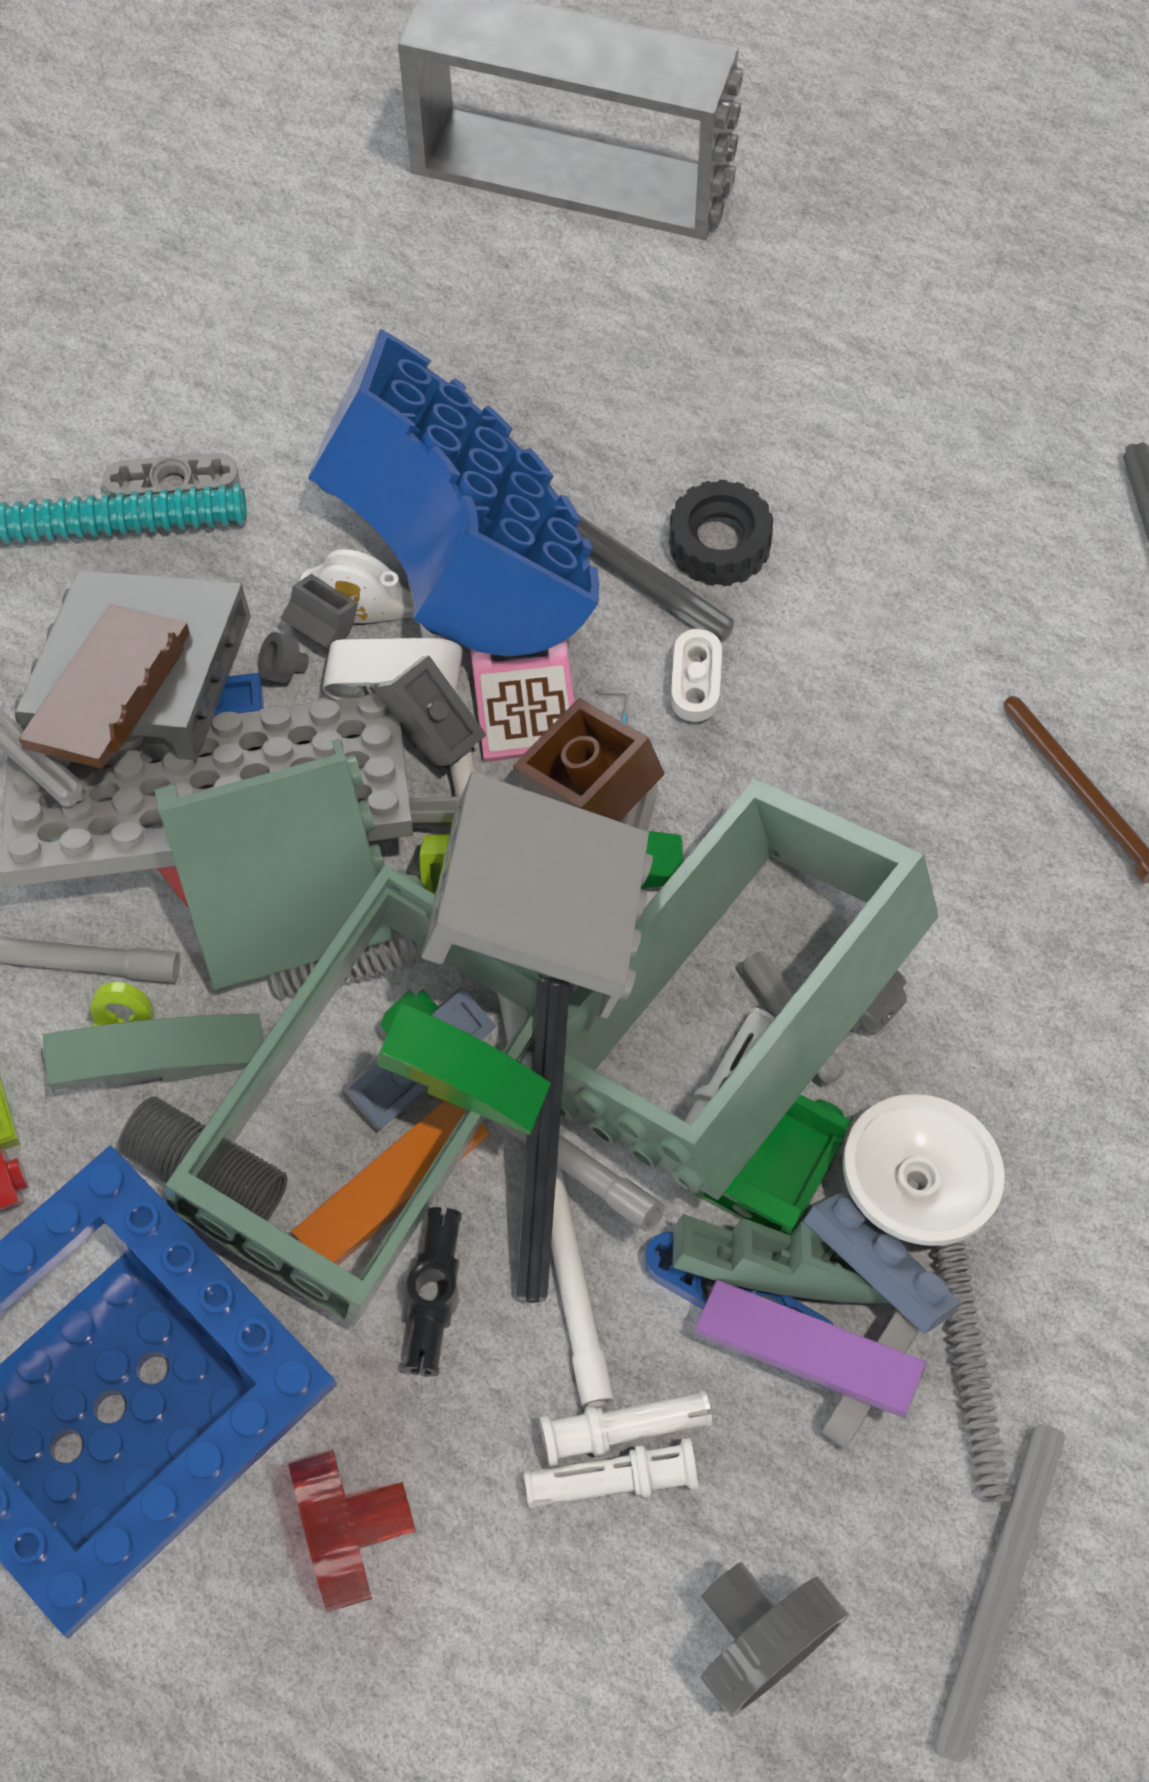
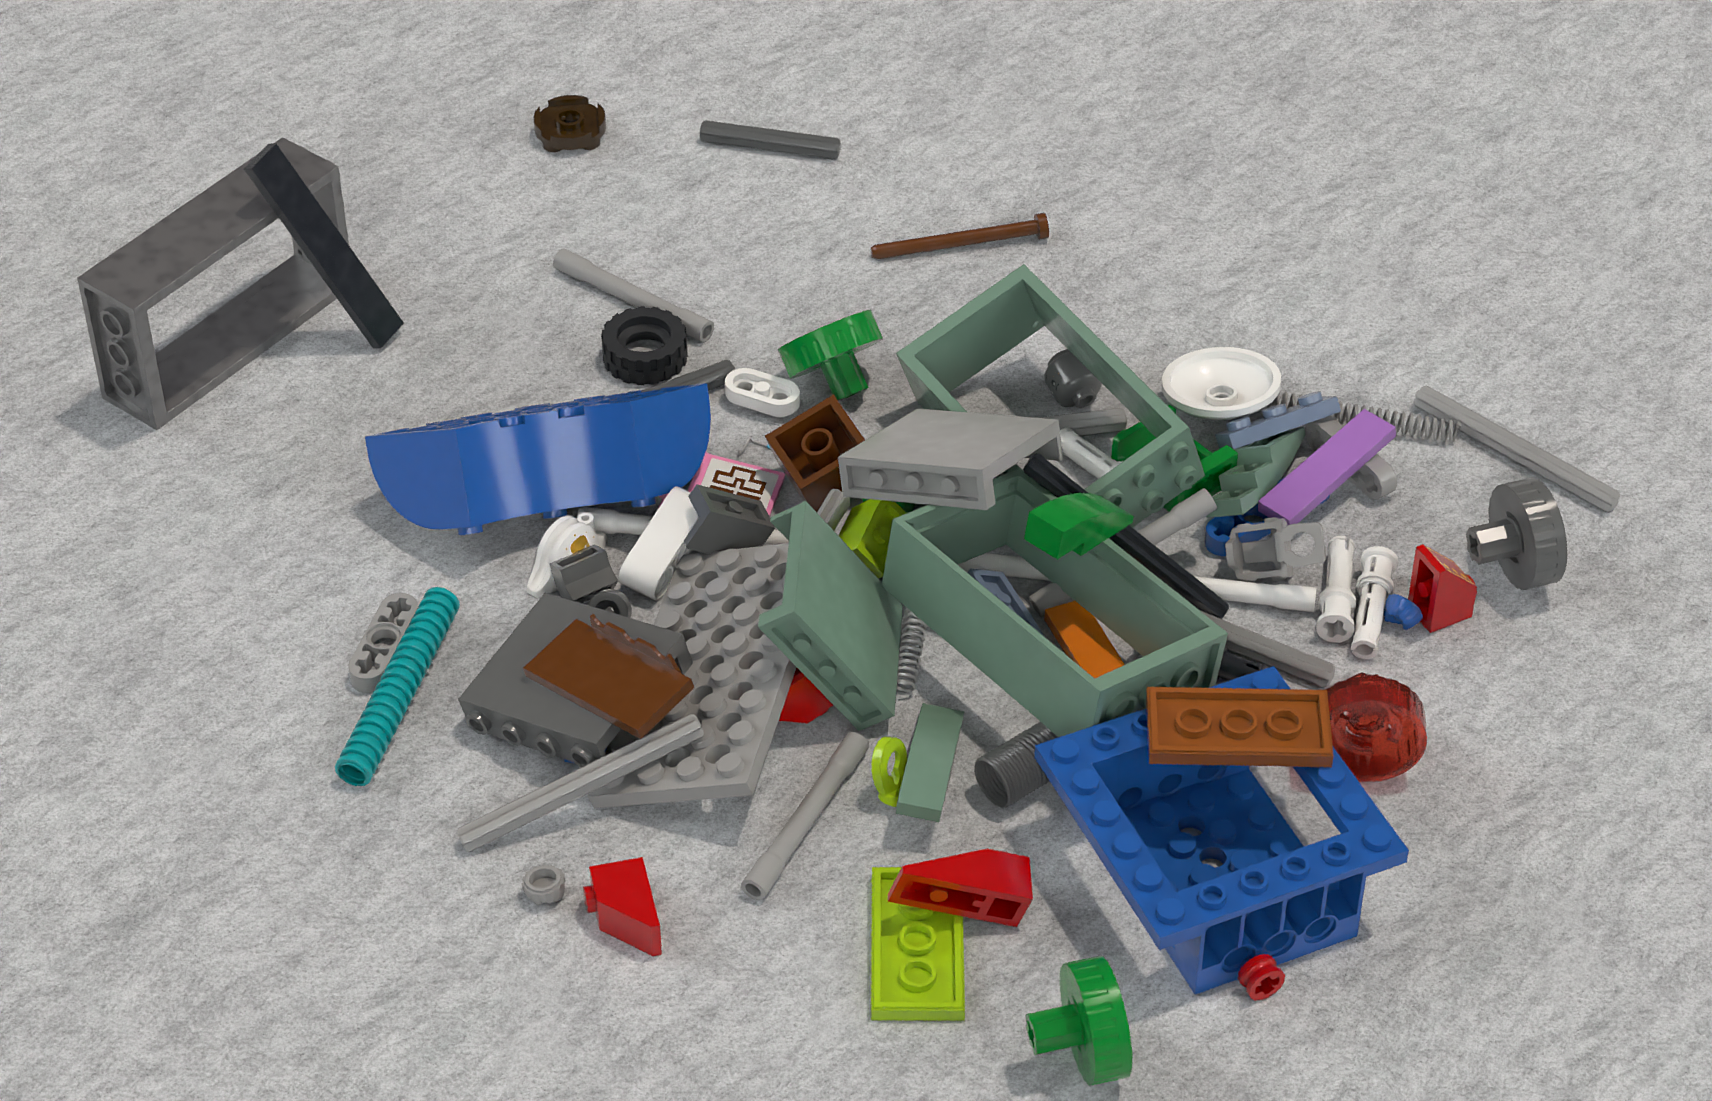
camera: 70 degrees left, 20 degrees down
(190, 1368) = (1238, 727): none -> dark orange tile
(489, 1336) = (1276, 654): none -> light grey axle
(613, 1519) = (1401, 611): none -> blue piece
(630, 162) = (323, 245): none -> black tile
(631, 1336) = (1275, 549): none -> light grey piece
(652, 1559) = (1440, 589): none -> red slope
(766, 716) = (833, 351): none -> green piece
(788, 550) = (585, 271): none -> light grey piece
(1070, 339) = (583, 133): none -> dark brown plate

